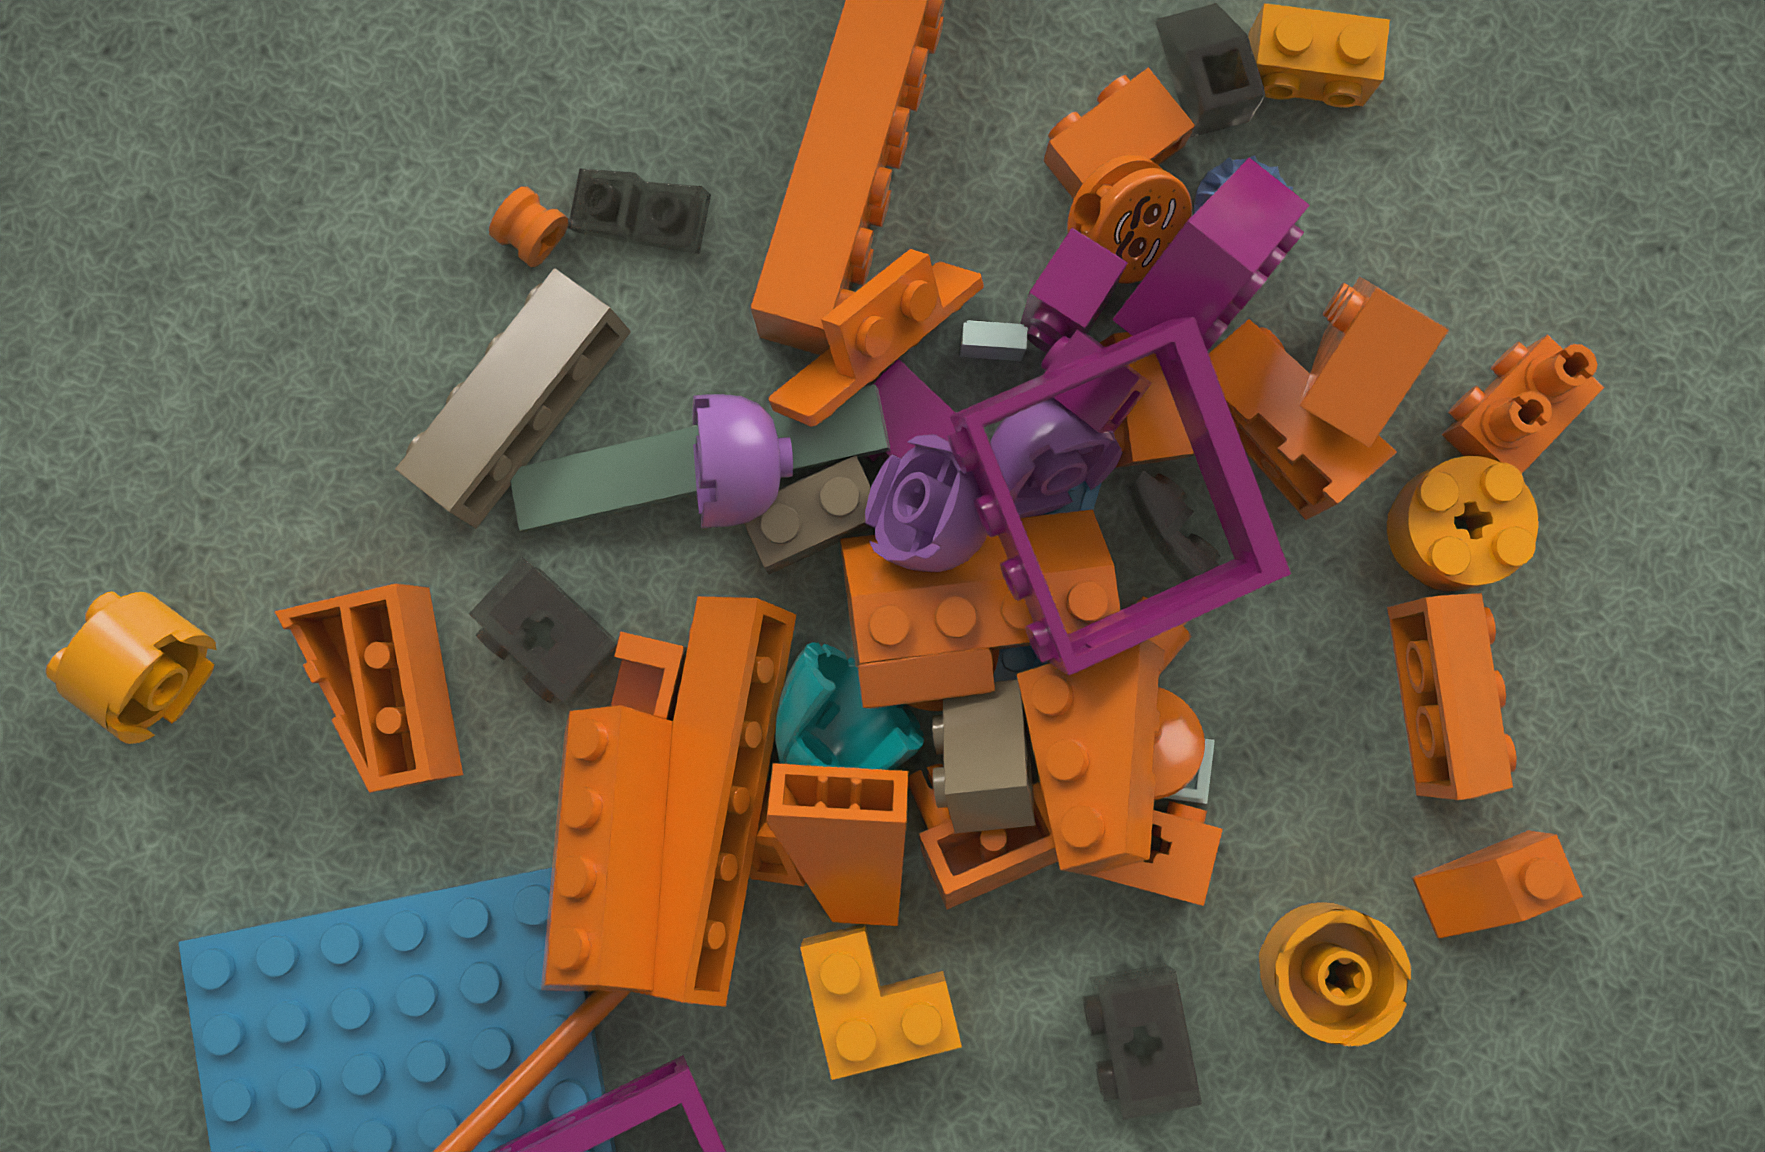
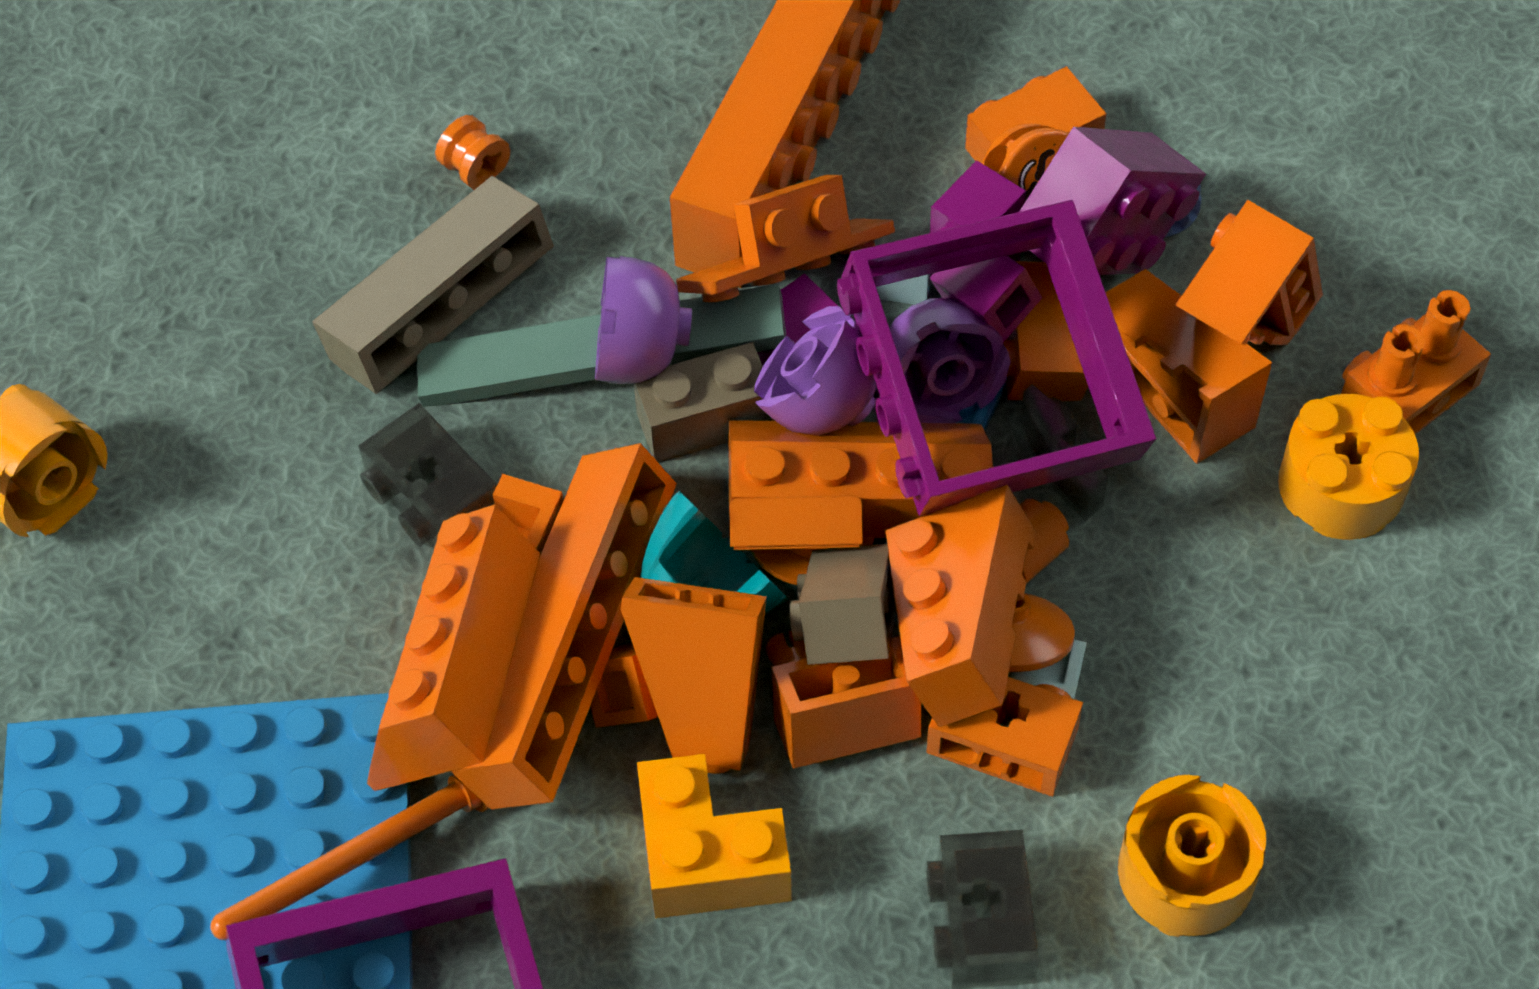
camera: 10 degrees right, 25 degrees down
(383, 680) = (264, 499): orange wedge -> none
(639, 212) = (566, 151): clear smoke slope -> none
(1211, 68) = (1129, 82): clear smoke slope -> none
(1319, 54) = (1226, 76): light orange brick -> none
(1452, 696) = (1331, 611): orange slope -> none
(1498, 885) = (1373, 797): orange slope -> none

